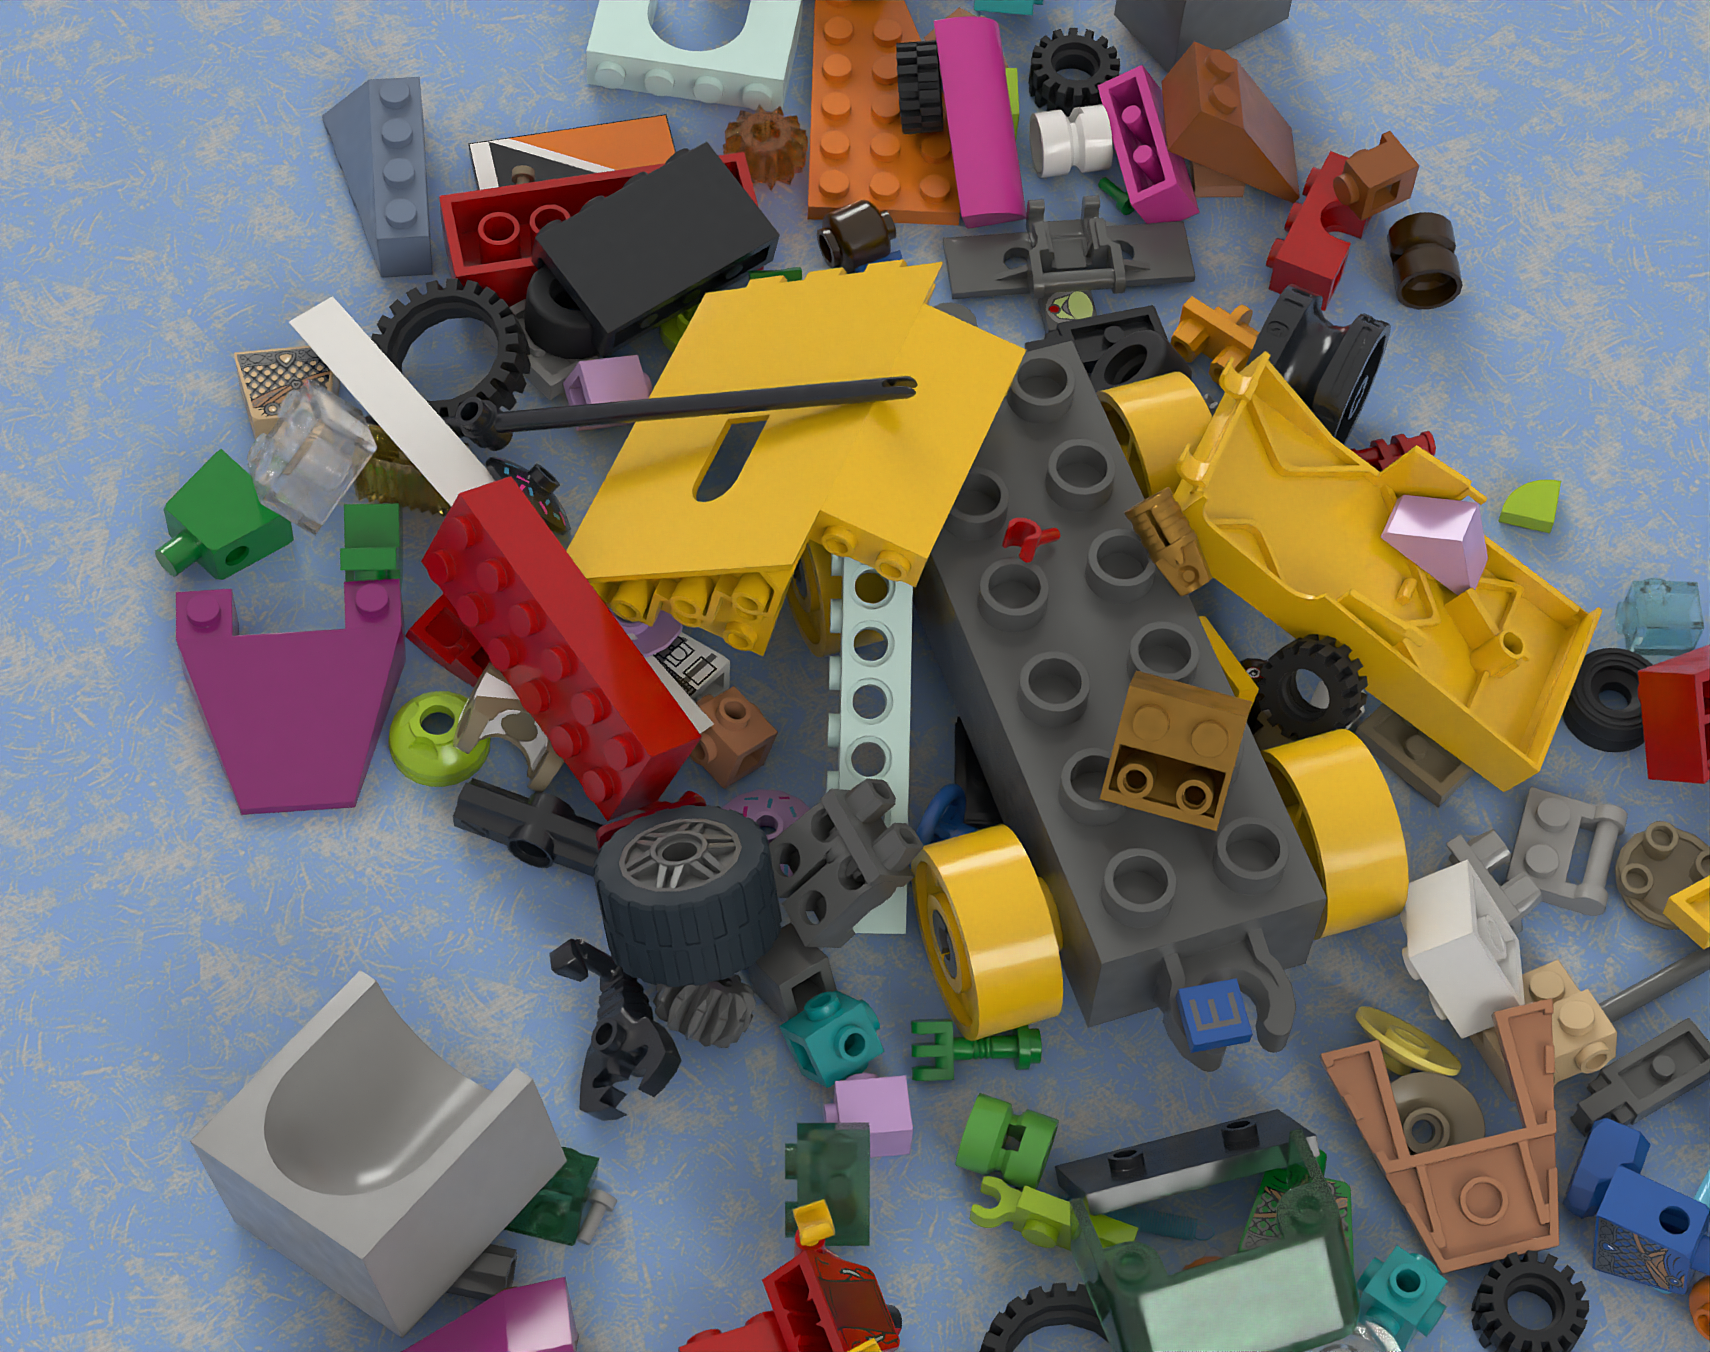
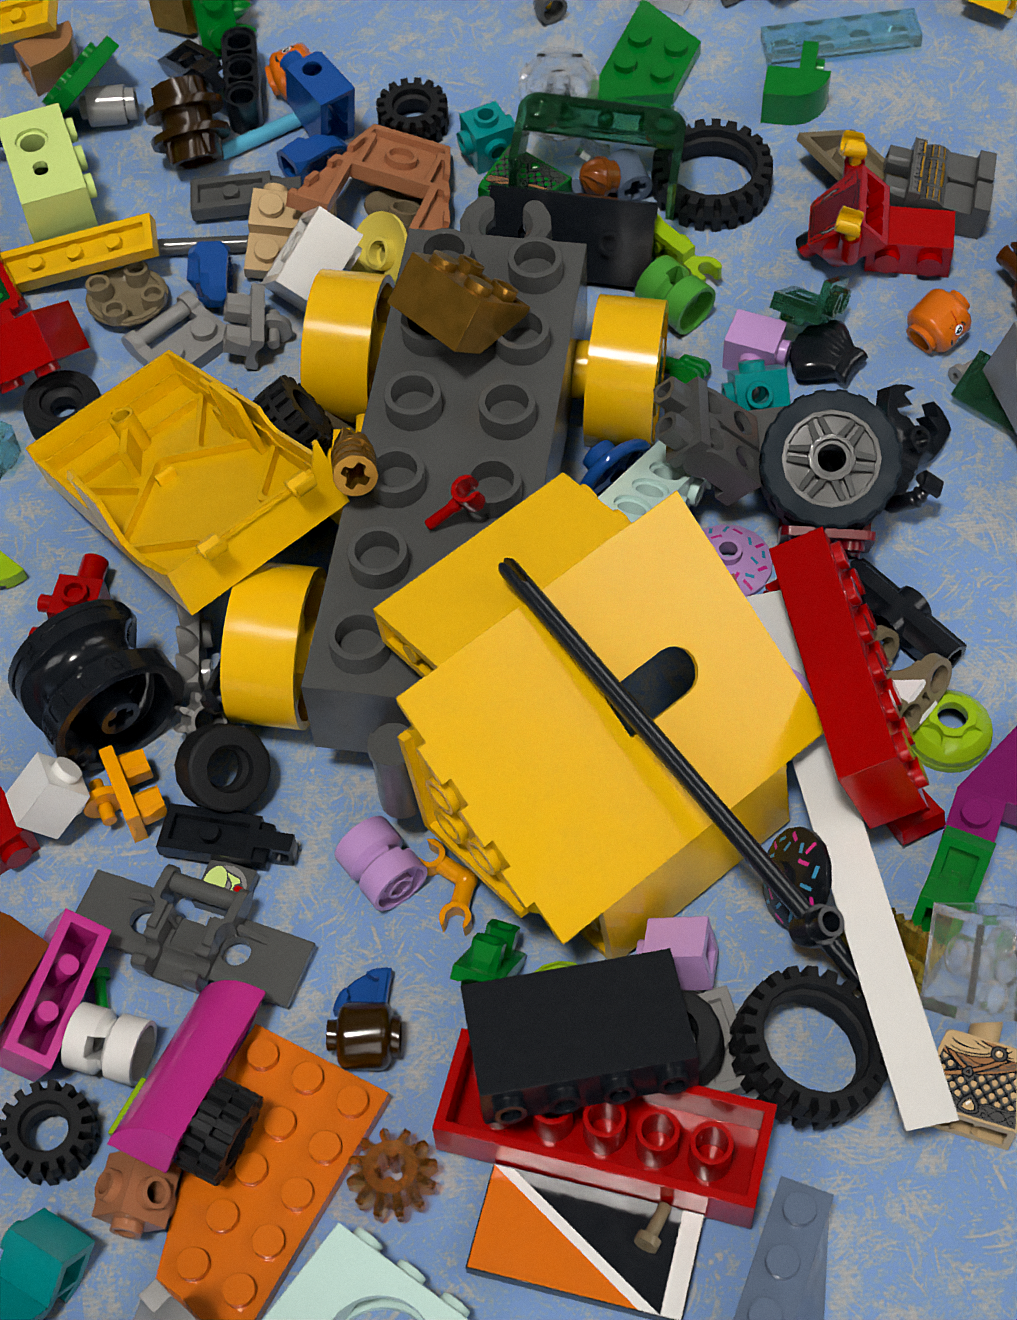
camera: 145 degrees left, 0 degrees up
(656, 1251) = (939, 320): none -> orange head
(761, 1153) = (825, 353): none -> black animal
(1213, 1015) = (527, 210): blue tile -> none
(1272, 275) = (47, 795): none -> white brick
(1440, 538) = (118, 485): lavender slope -> none
(1588, 937) = (211, 272): none -> blue rock

